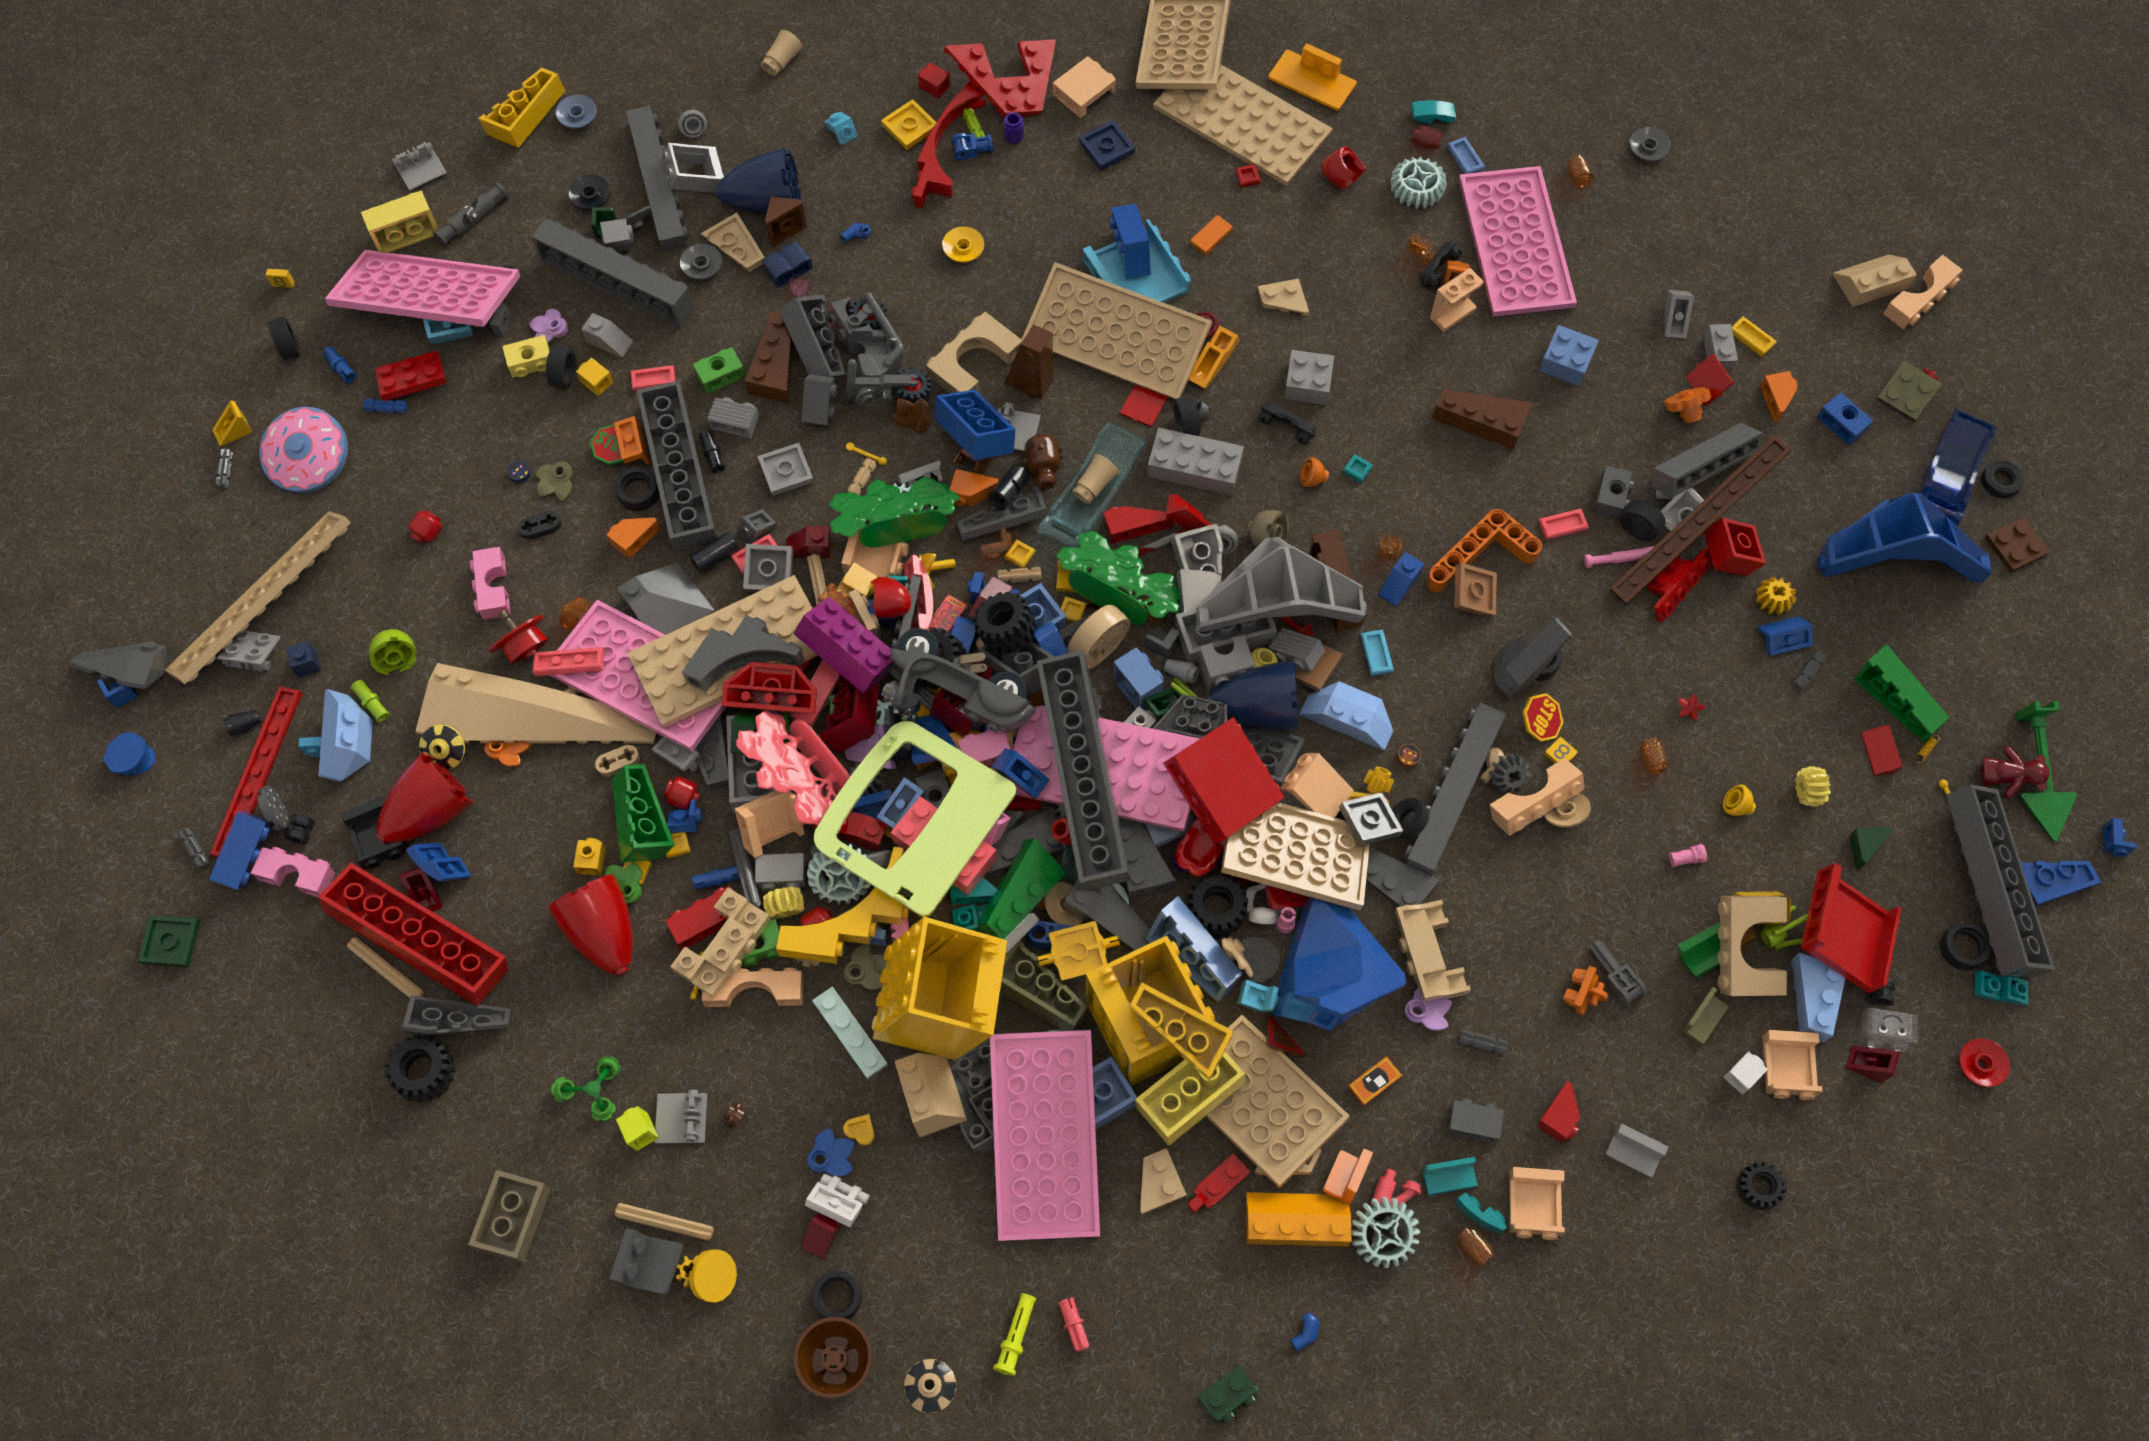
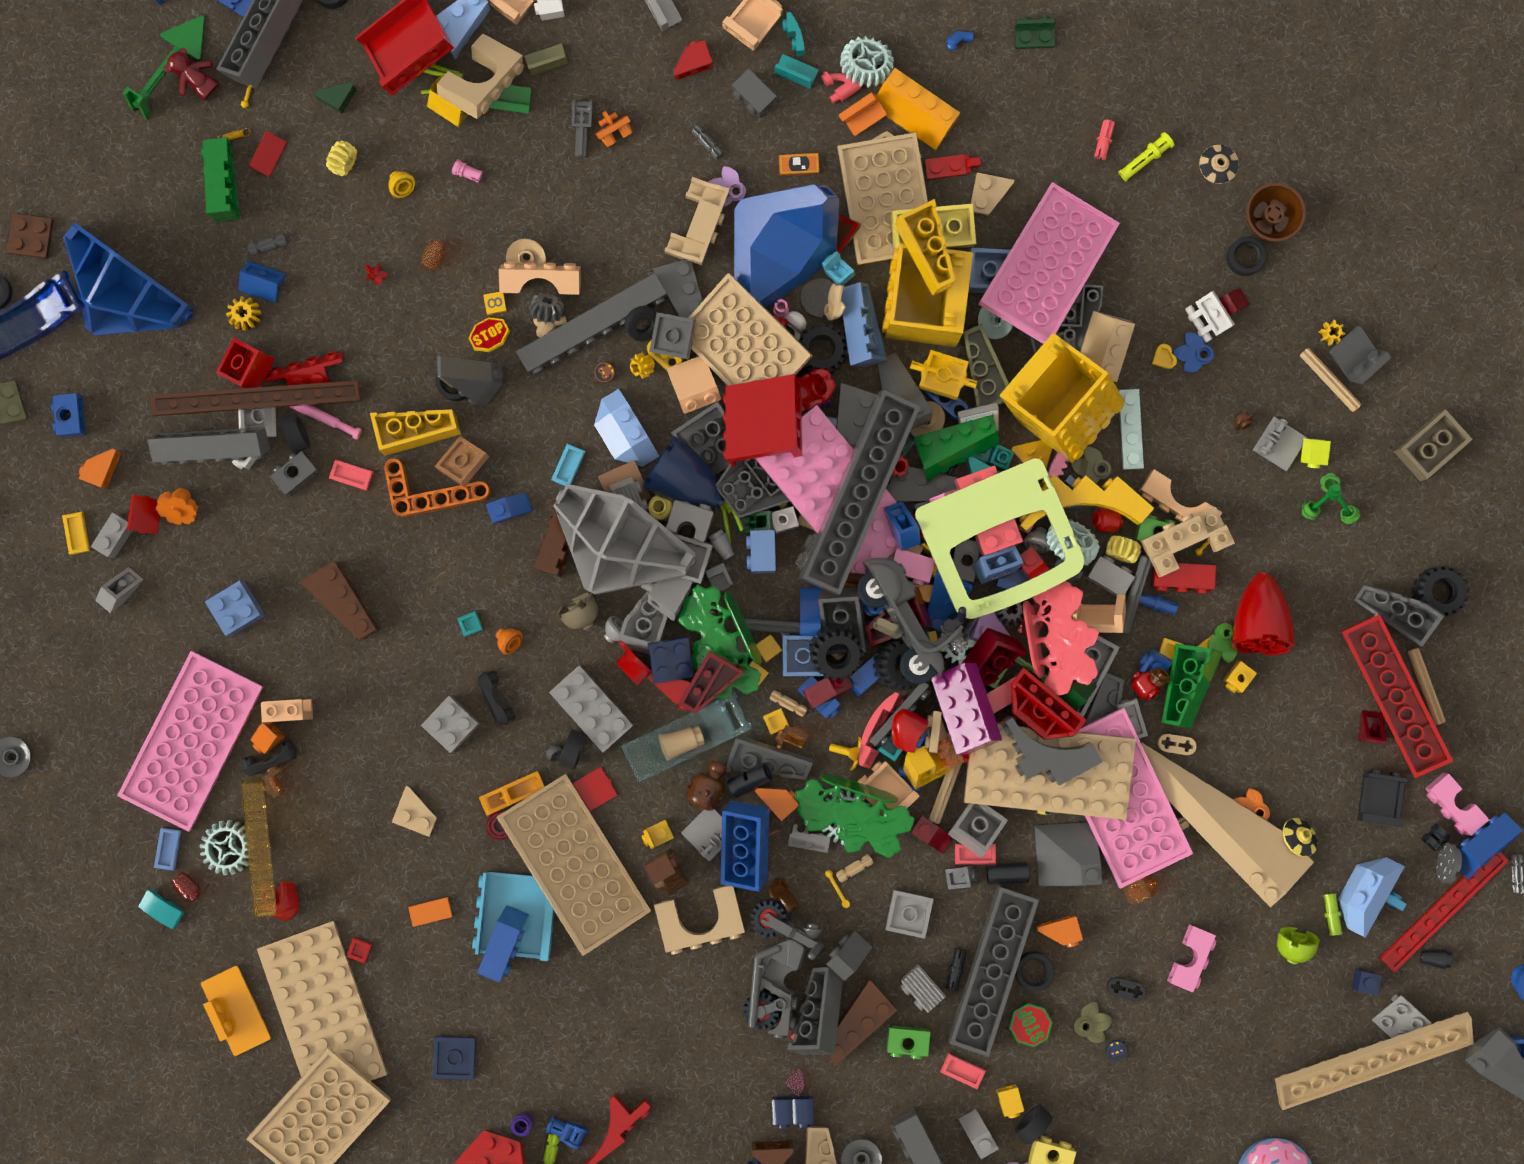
camera: 145 degrees left, 20 degrees up
(421, 802) = (1343, 795): red cylinder -> none
(425, 526) = (1215, 1044): red head -> none
(437, 863) = (1351, 739): blue slope -> none
(521, 640) = (1198, 886): red piece -> none
(568, 661) = (1171, 844): coral tile -> none
(632, 440) = (1015, 1016): orange panel -> none
(671, 796) = (1159, 676): none -> reddish brown plate
(713, 1275) = (1320, 318): yellow tile -> none
(856, 230) = (715, 1109): blue arm -> none
(947, 613) = (865, 703): coral tile -> none
(963, 237) = (634, 1044): yellow dish -> none
(1061, 400) = (657, 834): none -> yellow bracket
(1083, 86) = (432, 1130): light nougat panel -> none
(1100, 634) = (770, 602): tan piece -> none
(1105, 534) = (710, 680): none -> dark red wedge
(1154, 533) = (670, 659): none -> dark blue plate
(1392, 186) = (258, 848): none -> clear yellow beam
(1394, 545) = (494, 542): clear orange wheel -> none
(1475, 1246) = (813, 18): clear orange brick -> none
(1546, 587) = (412, 429): none -> yellow wedge
(1580, 171) = (88, 770): clear orange brick -> none

